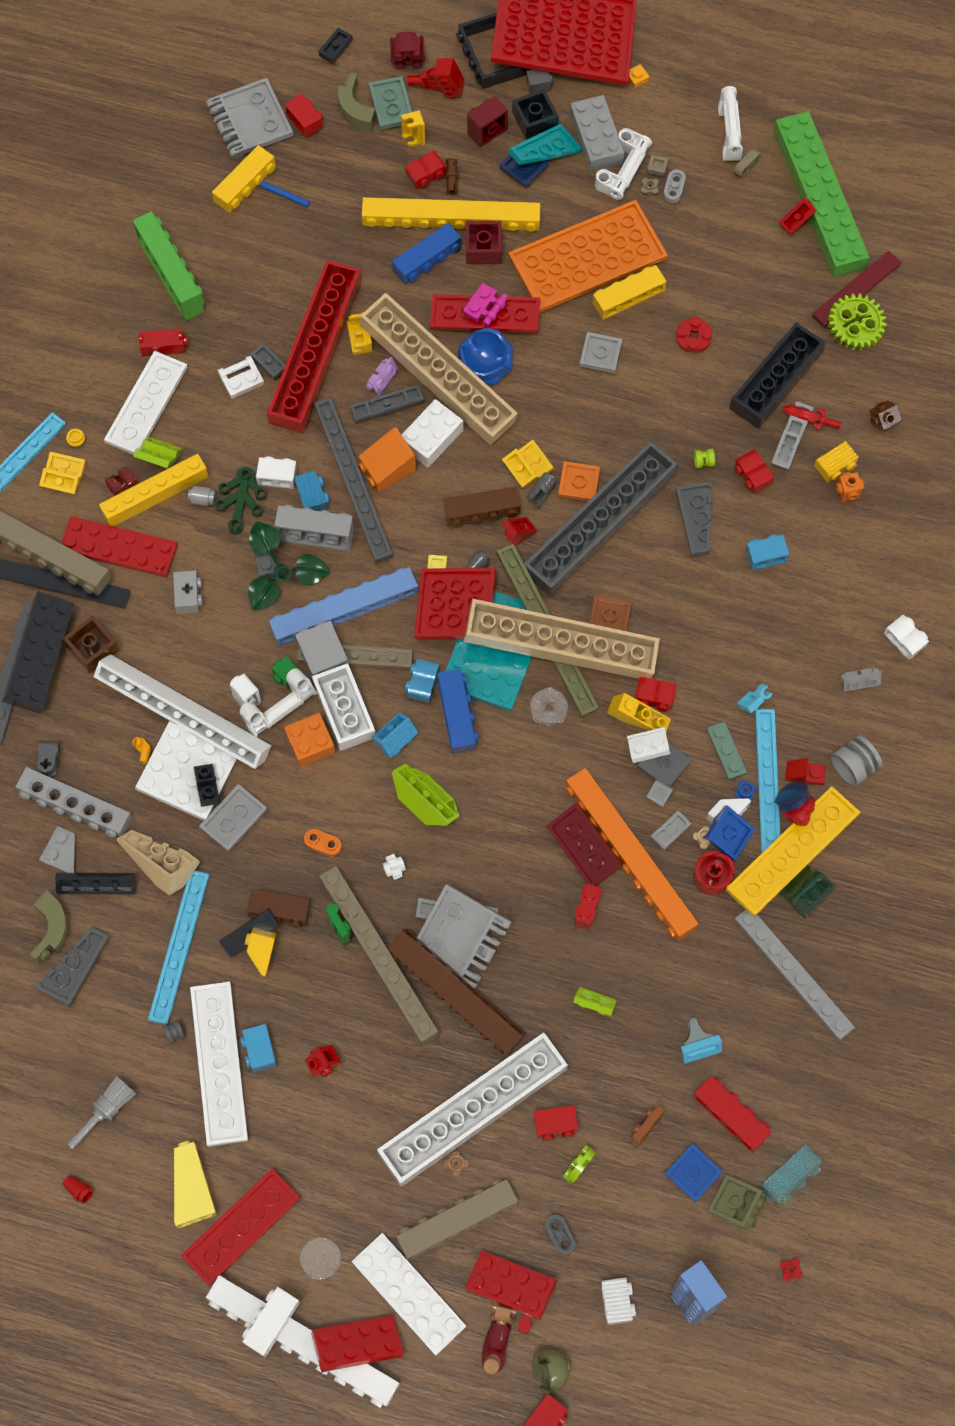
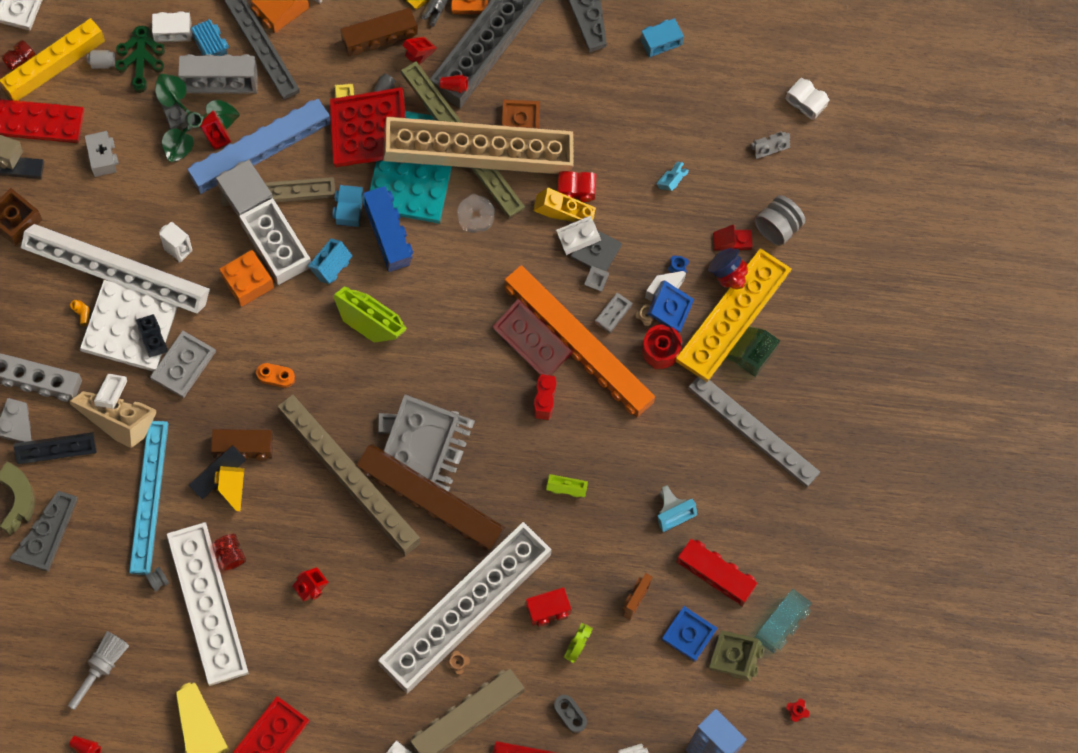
camera: 15 degrees left, 0 degrees up
(158, 452) = (50, 23): lime slope -> none
(158, 834) = (110, 391): none -> white tile
(248, 1015) = (228, 549): none -> clear red wheel
(258, 721) = (230, 232): white piece -> none
(259, 1048) = (245, 582): dark azure brick -> none
(281, 669) = (213, 217): green brick -> none
(302, 585) = (215, 130): none -> red slope
(340, 928) = (306, 453): green plate -> none
(394, 866) = (349, 387): white gear -> none
(549, 572) = (454, 83): none -> red cone
(726, 751) = (654, 230): sand green plate -> none
(767, 776) = (697, 249): medium azure tile -> none

